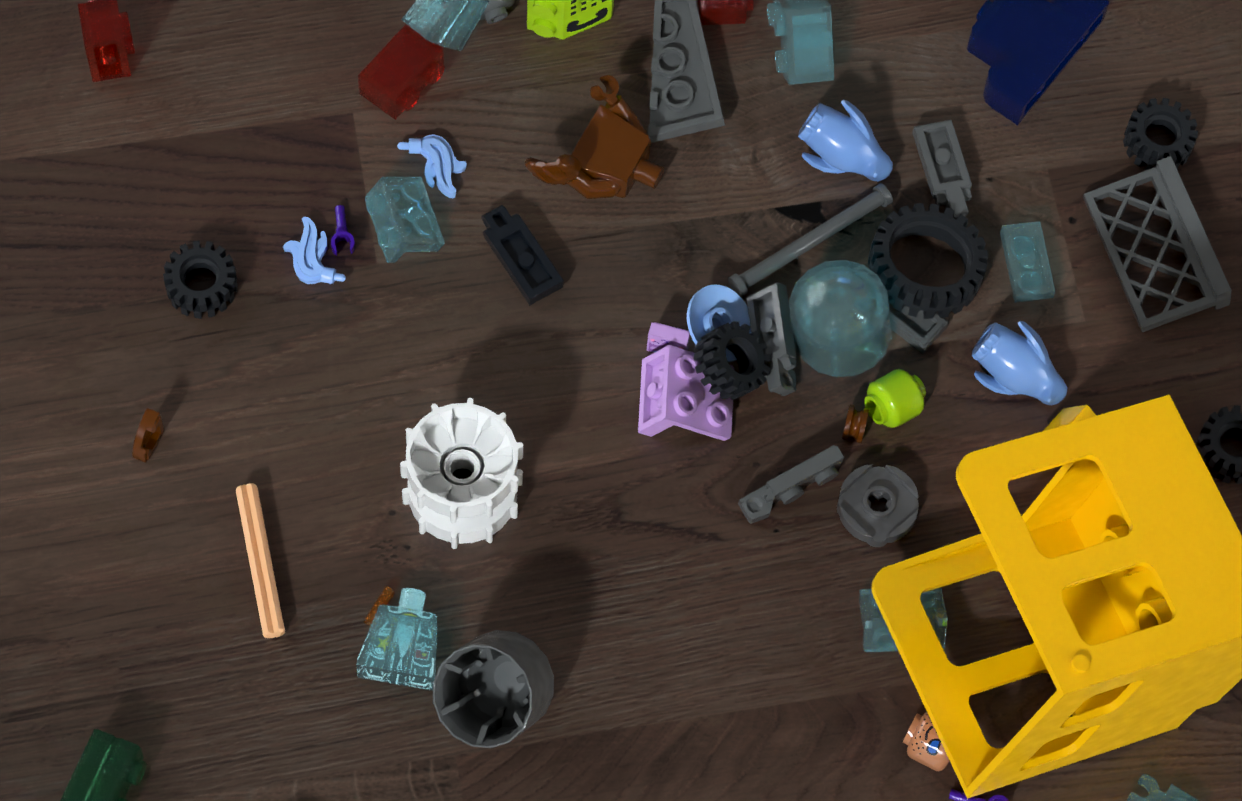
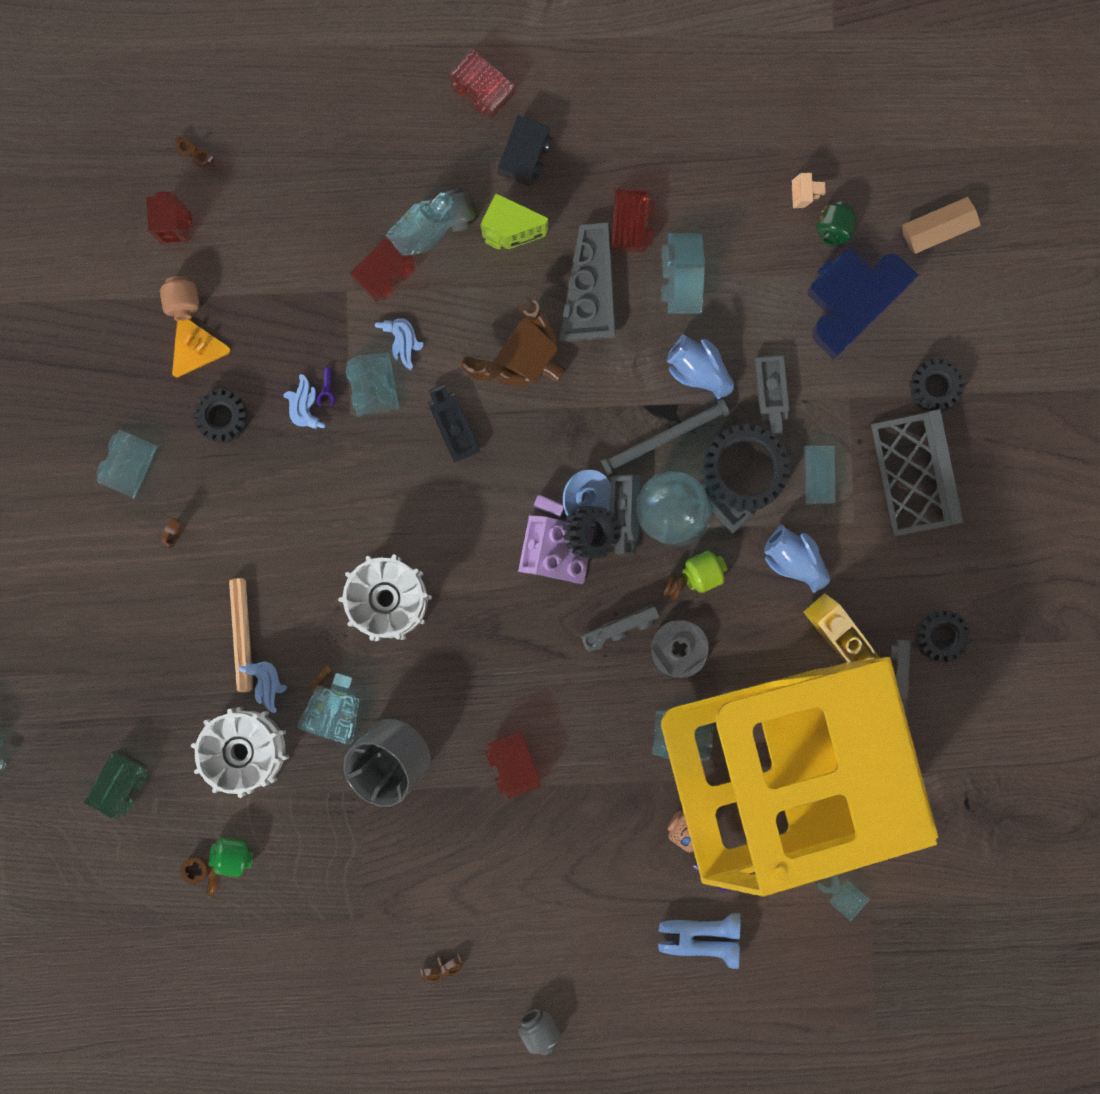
camera: 15 degrees right, 20 degrees up
(73, 353) = (125, 463): none -> clear light blue bracket
(128, 137) = (179, 298): none -> nougat head
(154, 202) = (195, 348): none -> light orange piece
(274, 666) = (216, 754): none -> white piece
(305, 618) = (267, 683): none -> light blue piece
(672, 680) = (513, 764): none -> clear red brick

